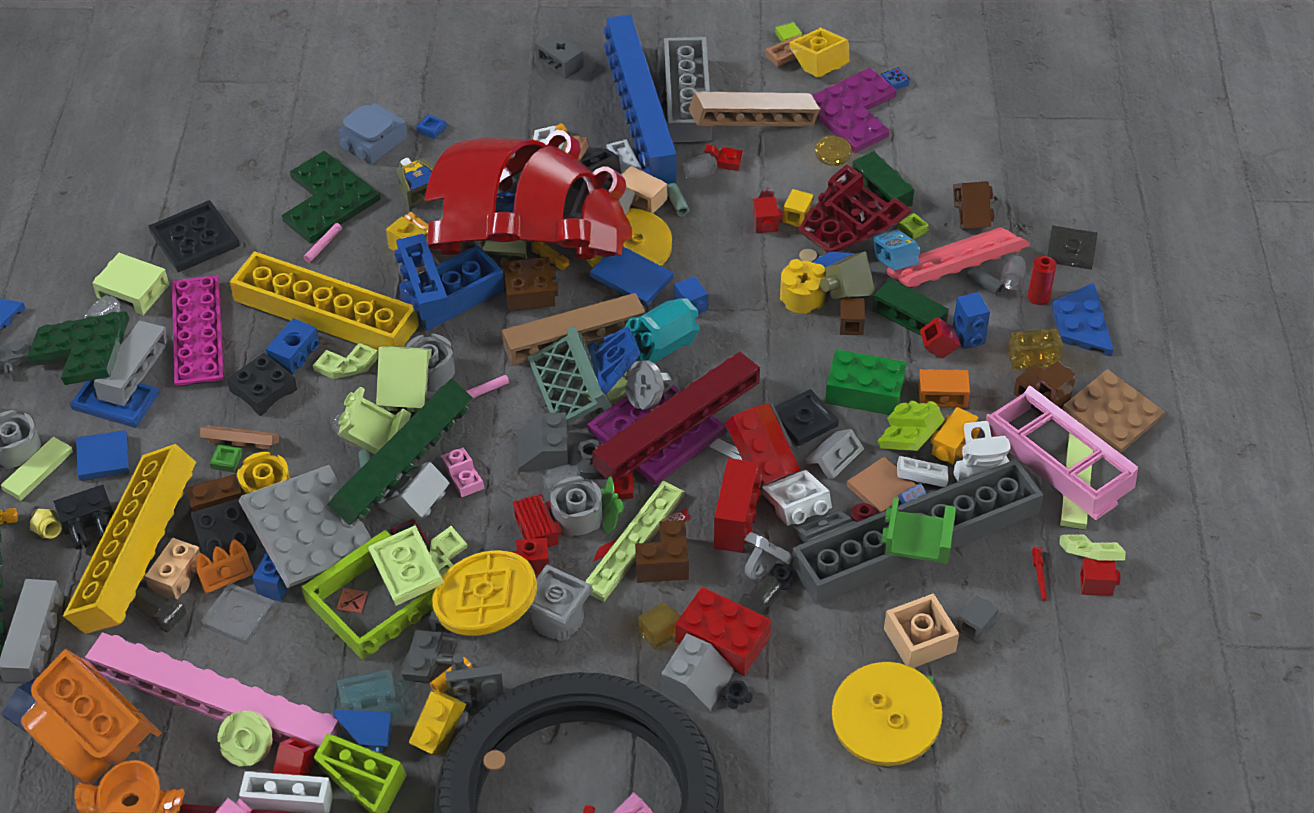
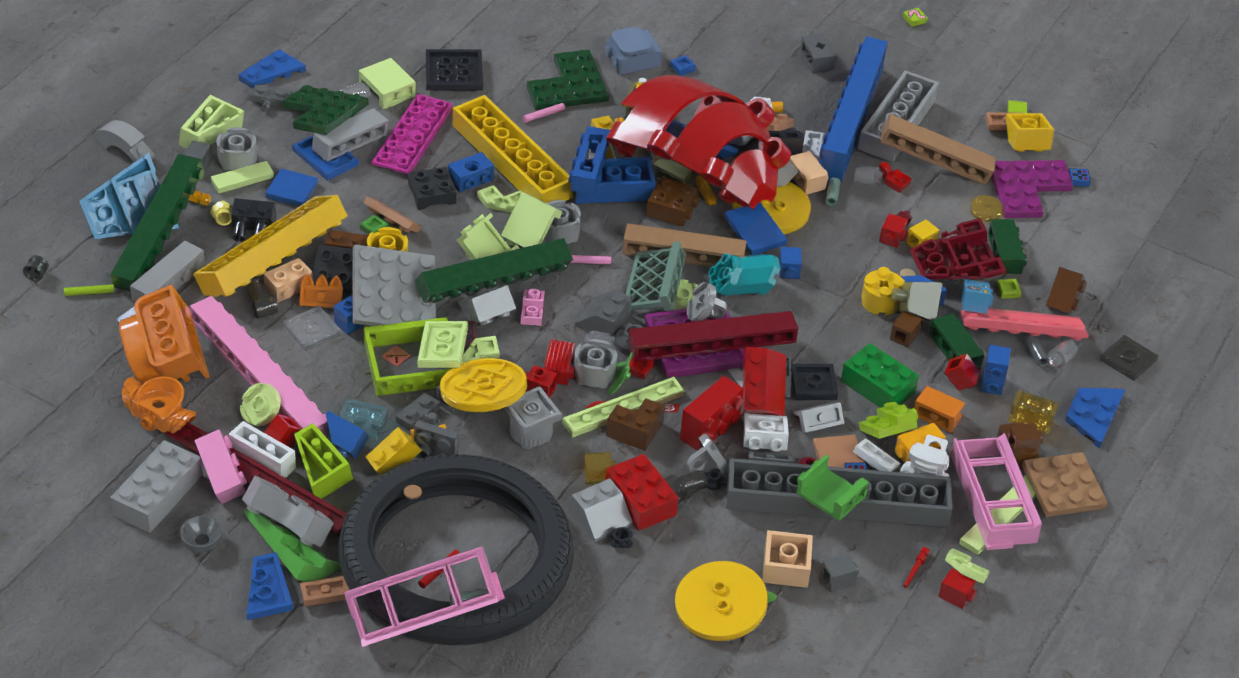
camera: 25 degrees right, 5 degrees down
(613, 357) = (694, 275): blue wing -> none
(1041, 280) = (1077, 366): red brick -> none

